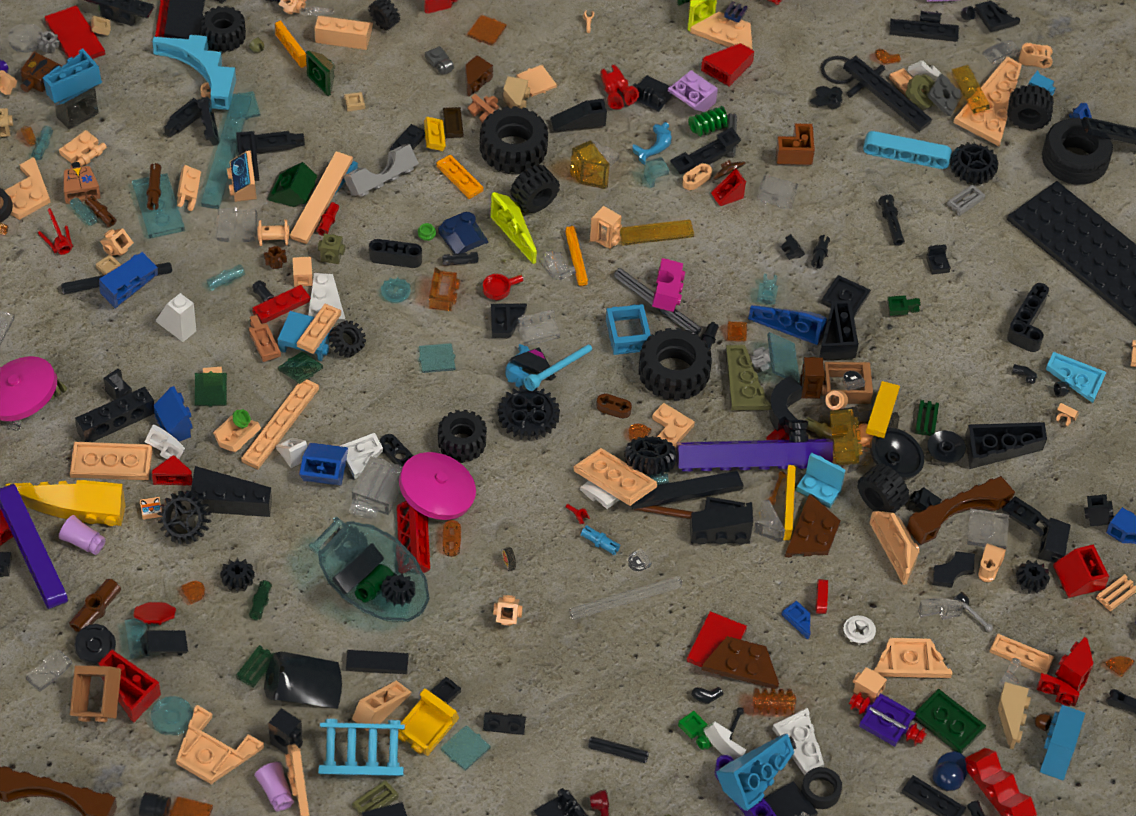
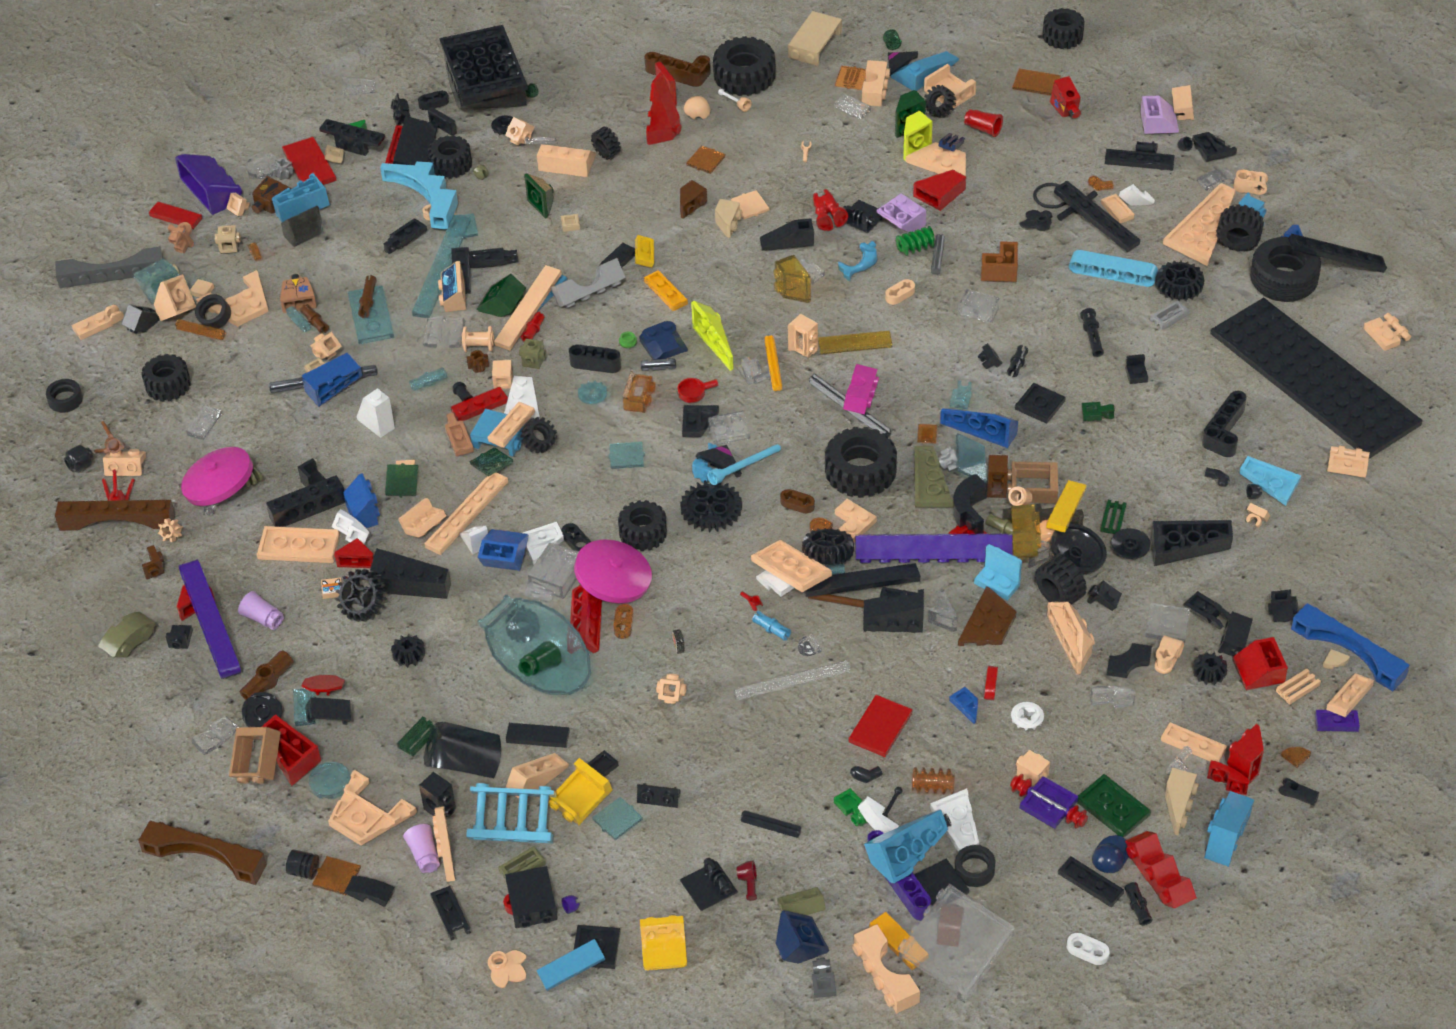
camera: 10 degrees right, 5 degrees down
(42, 142) = (266, 258): clear light blue pin -> none
(62, 244) = (274, 348): red plant -> none
(79, 146) = (304, 263): light nougat plate -> none
(87, 500) = (269, 577): yellow wedge -> none
(188, 186) = (401, 297): light nougat hinge -> none
(193, 591) = (364, 665): clear orange tile -> none
(209, 121) = (427, 238): black hinge -> none
(241, 418) = (426, 505): bright green plate -> none
(260, 600) = (428, 674): clear green pin -> none
(290, 44) = (512, 170): light orange tile -> none
(358, 568) = (523, 643): black slope -> none
(398, 589) = (561, 664): black gear -> none
(439, 59) = (656, 185): dark grey plate -> none
(453, 122) = (664, 241): dark brown tile -> none
(486, 107) = (697, 227): nougat hips -> none
(517, 123) = (720, 241): black tyre -> none
(535, 189) = (736, 299): black tyre -> none
(621, 345) = (811, 444): dark azure window -> none
(654, 169) = (856, 283): clear light blue panel -> none
(708, 154) = (913, 271): black slope -> none
(710, 333) = (898, 438): black axle -> none
(727, 168) = (931, 283): reddish brown dish -> none
(730, 189) = (932, 302): red slope -> none
(742, 662) = (904, 743): reddish brown wing -> none
(781, 474) = (949, 591): clear orange hinge -> none
(789, 502) = (965, 593): yellow tile -> none
(798, 431) = (978, 524): black wheel -> none
(840, 334) = (1029, 436): black wedge -> none
(852, 380) = (1038, 478): tile -> none
(912, 659) = (1079, 744): light nougat wing -> none
(915, 93) = (1124, 215): olive plate -> none
(952, 94) = (1162, 217): dark grey piece -> none
(963, 598) = (1138, 694): light grey hinge -> none
(971, 89) = (1181, 212): clear yellow tile -> none
(990, 496) = (1169, 590): reddish brown arch -> none
(1043, 721) = (1210, 807): reddish brown hinge -> none

